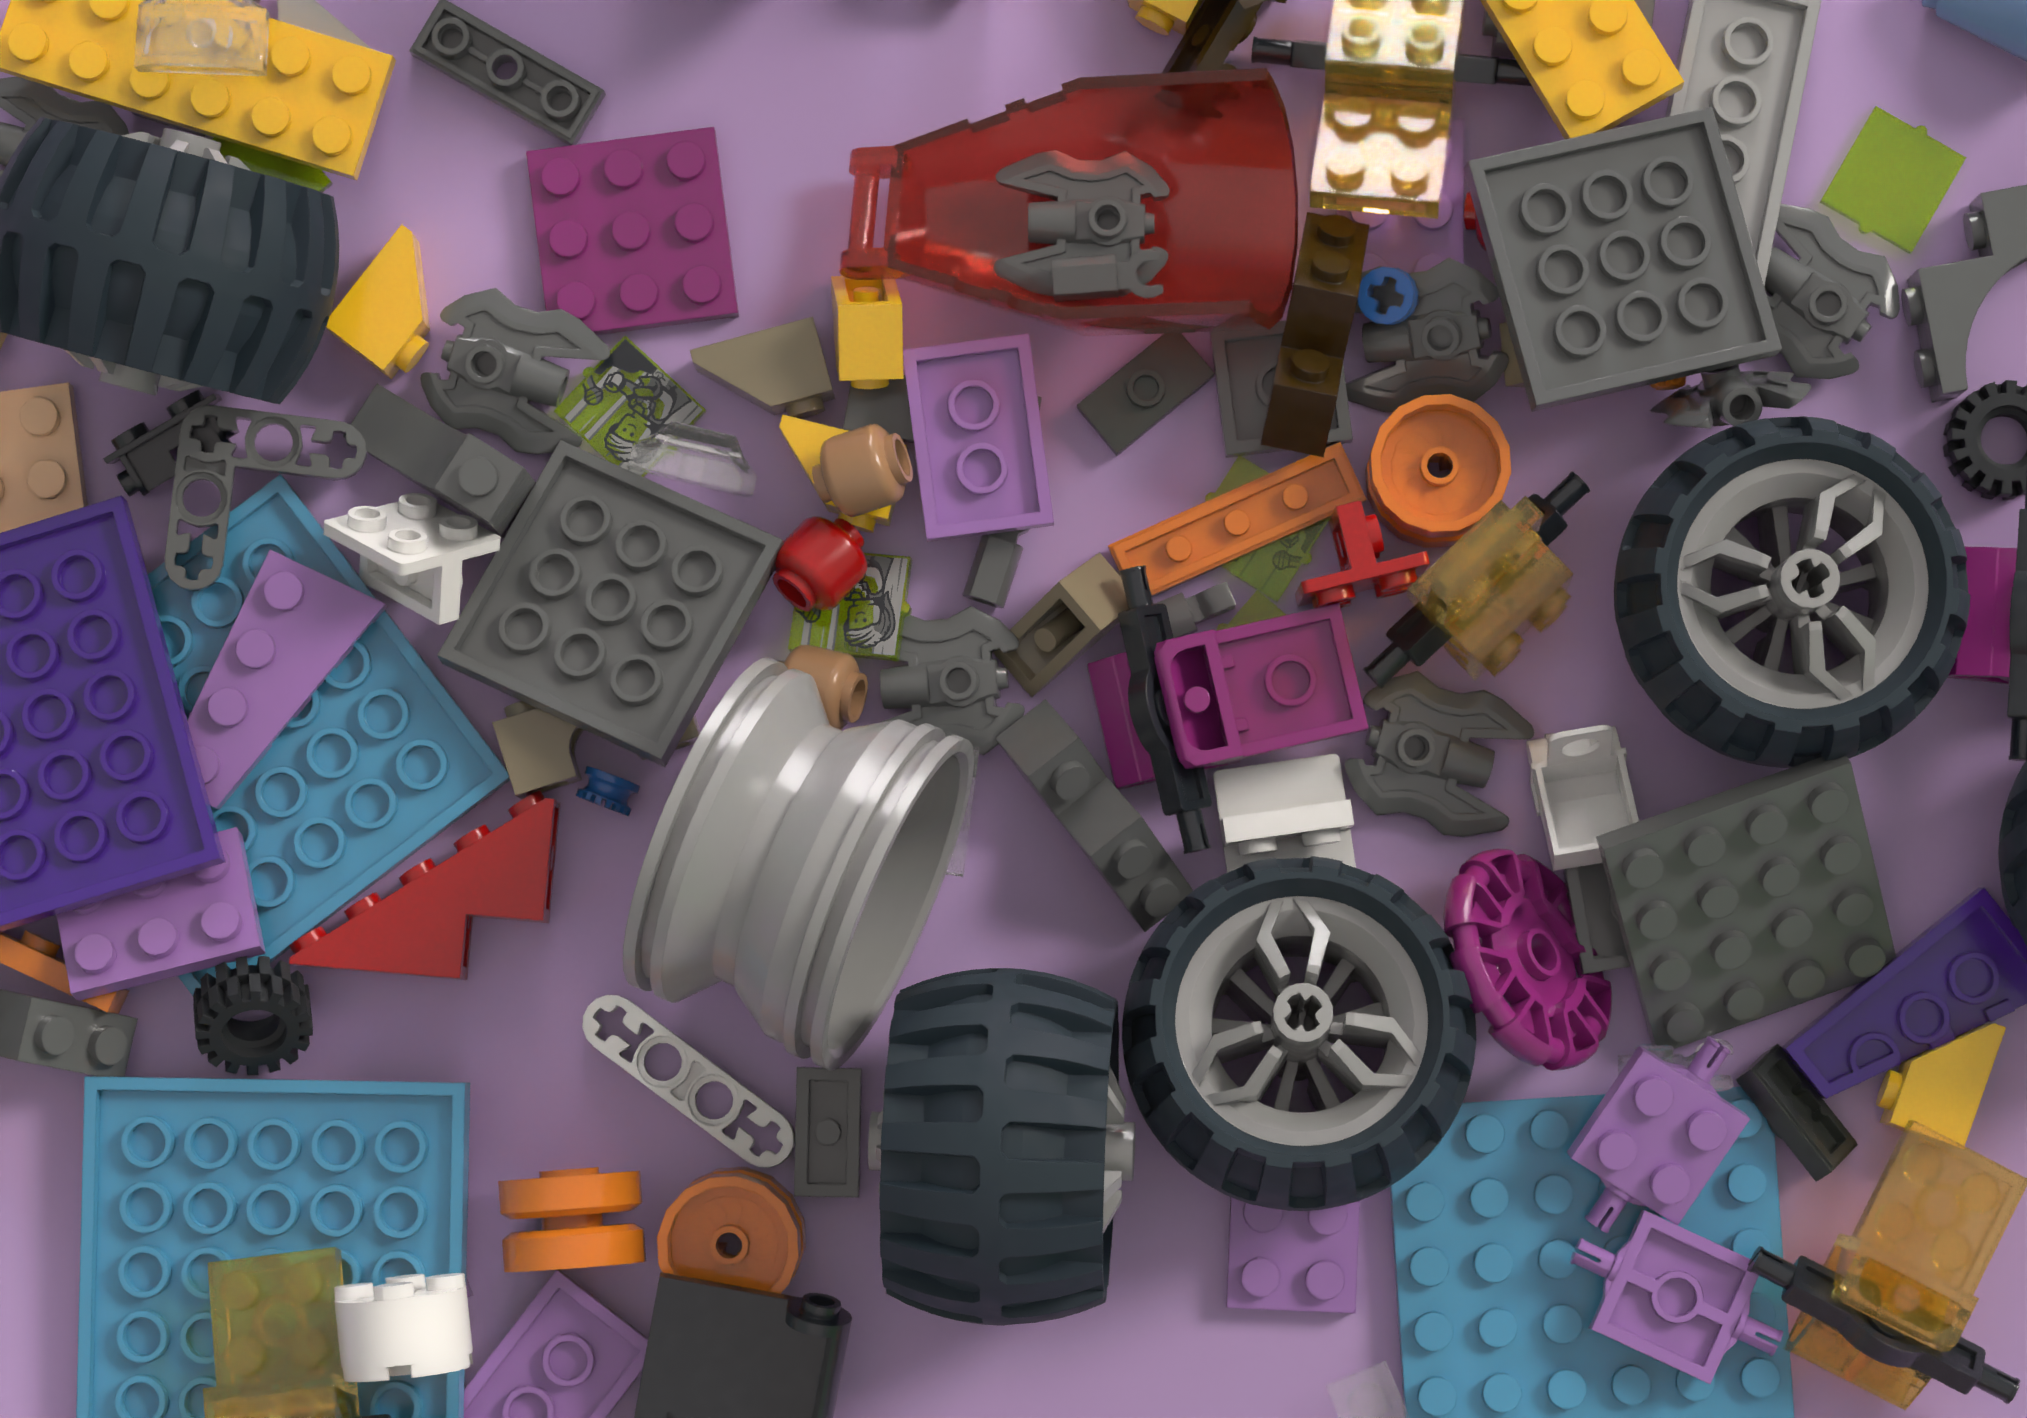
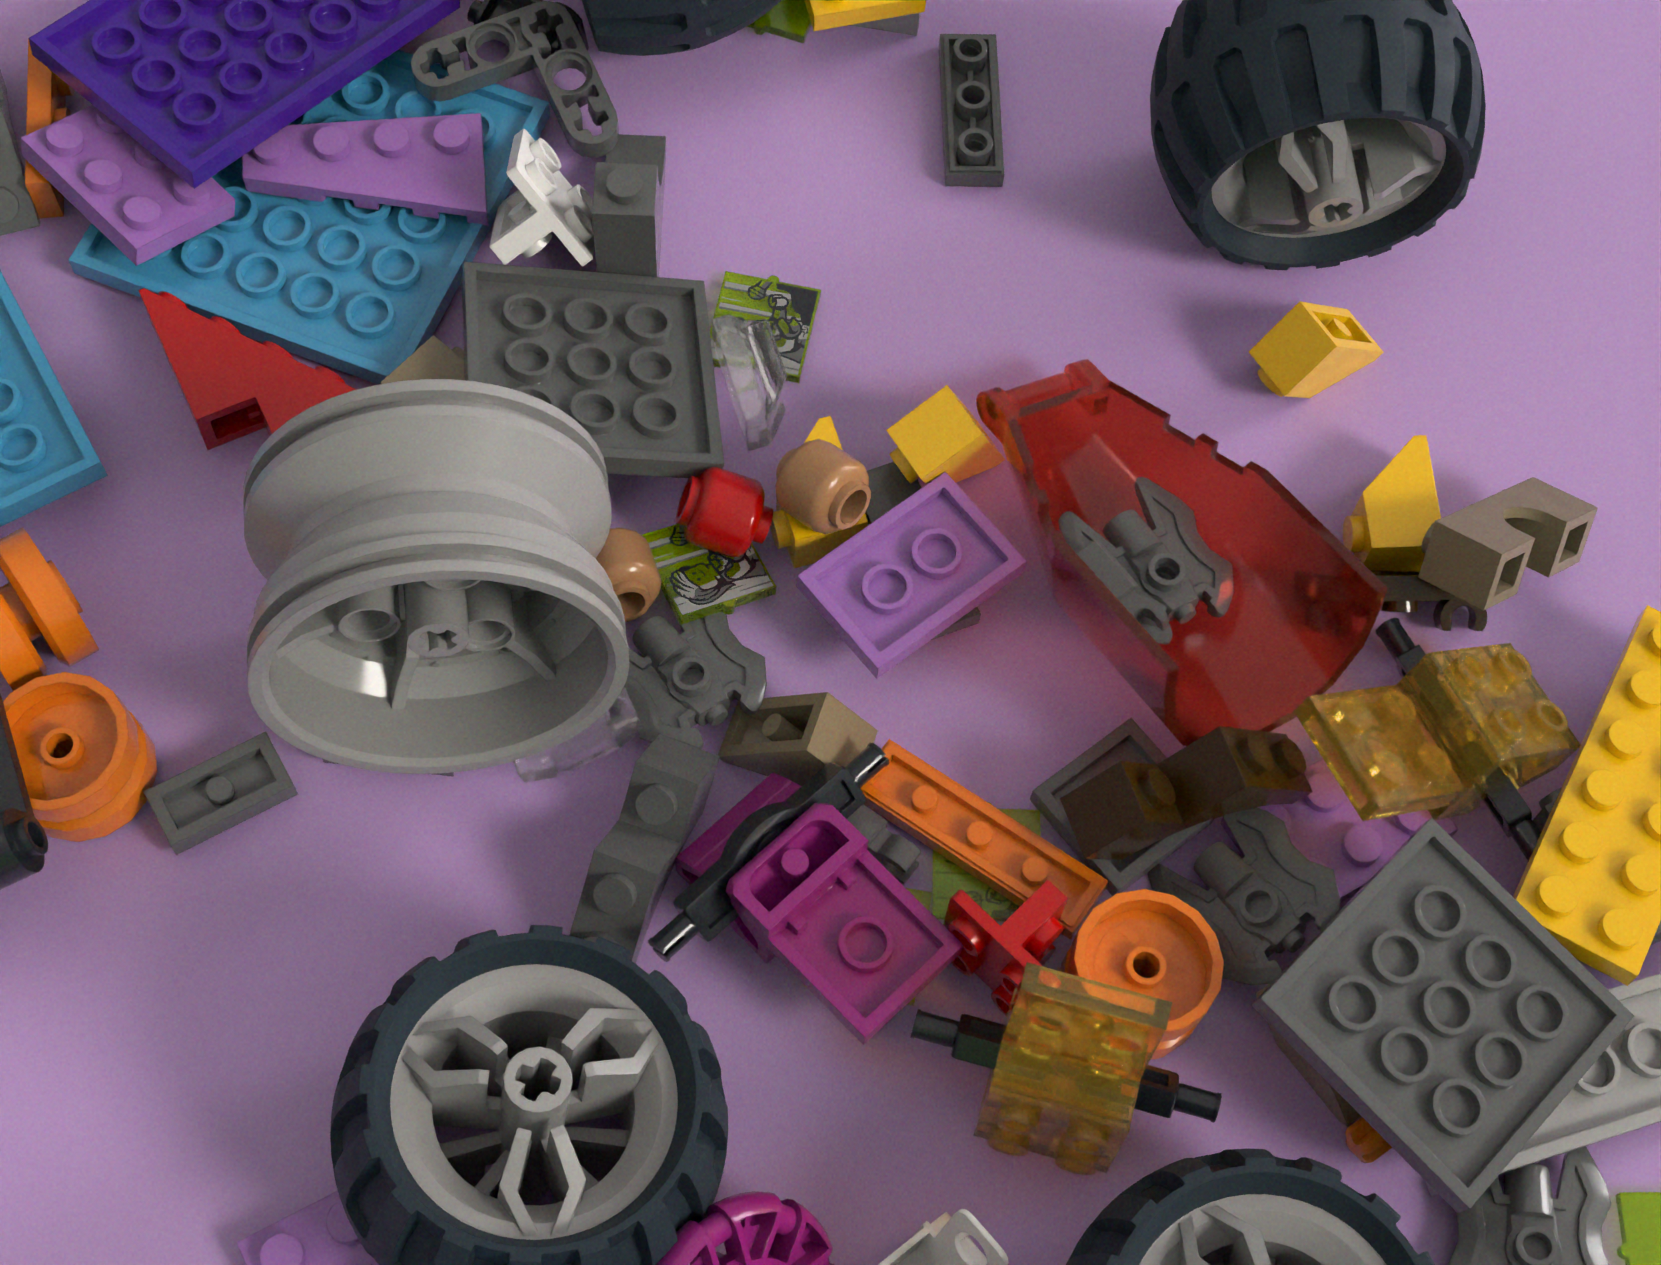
camera: 50 degrees right, 20 degrees down
(252, 1041) = (55, 293): black tyre -> none
(387, 308) = (732, 110): yellow slope -> none
(502, 368) = (735, 213): dark grey piece -> none
(634, 231) = (905, 255): magenta plate -> none
(683, 1088) = (202, 658): white beam -> none
(772, 368) = (865, 397): dark tan slope -> none
(994, 568) = (814, 662): dark grey bar -> none
(1000, 1146) = (256, 901): black wheel -> none
(1145, 391) = (1042, 701): pearl dark grey plate -> none
(1284, 811) = (751, 1023): white bracket -> none
(1404, 285) = (1250, 850): blue bush -> none
(1427, 751) = (878, 1123): dark grey piece -> none
(1730, 397) = (1396, 1190): dark grey piece -> none

